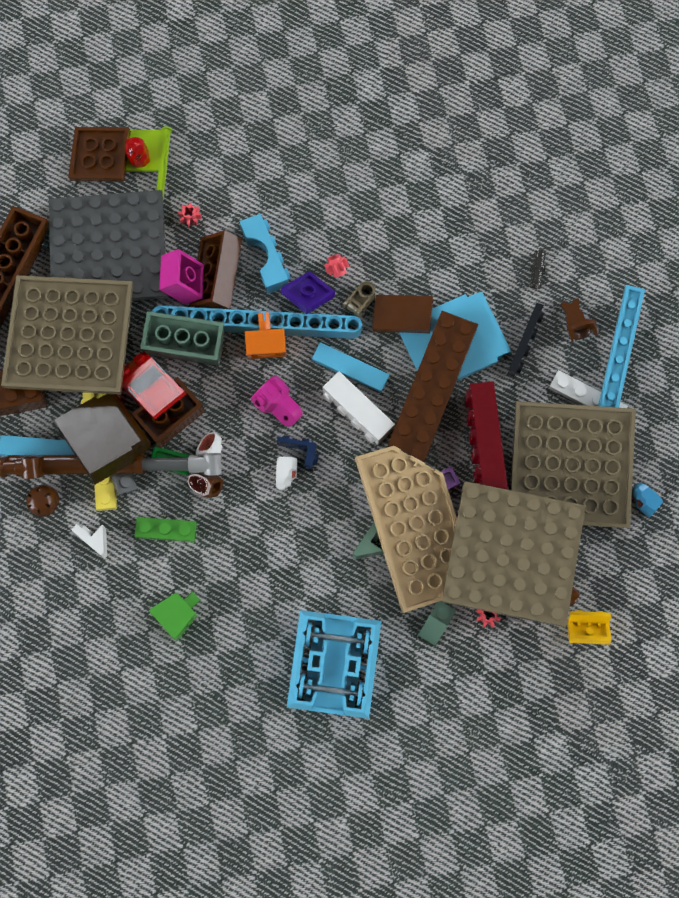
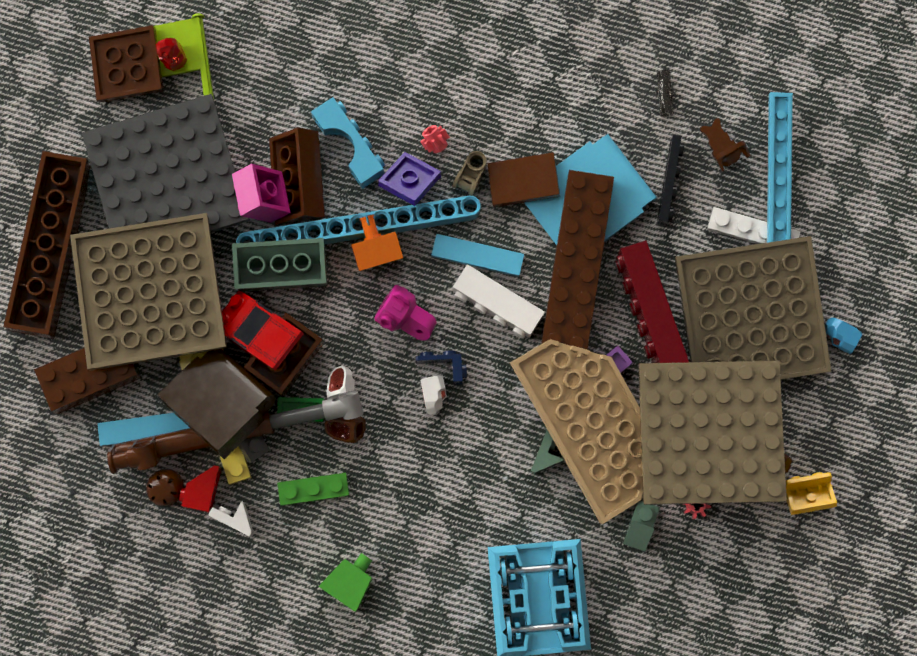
camera: 15 degrees left, 5 degrees up
(72, 509) = (201, 490): none -> red slope
(189, 215) = (250, 109): coral gear -> none

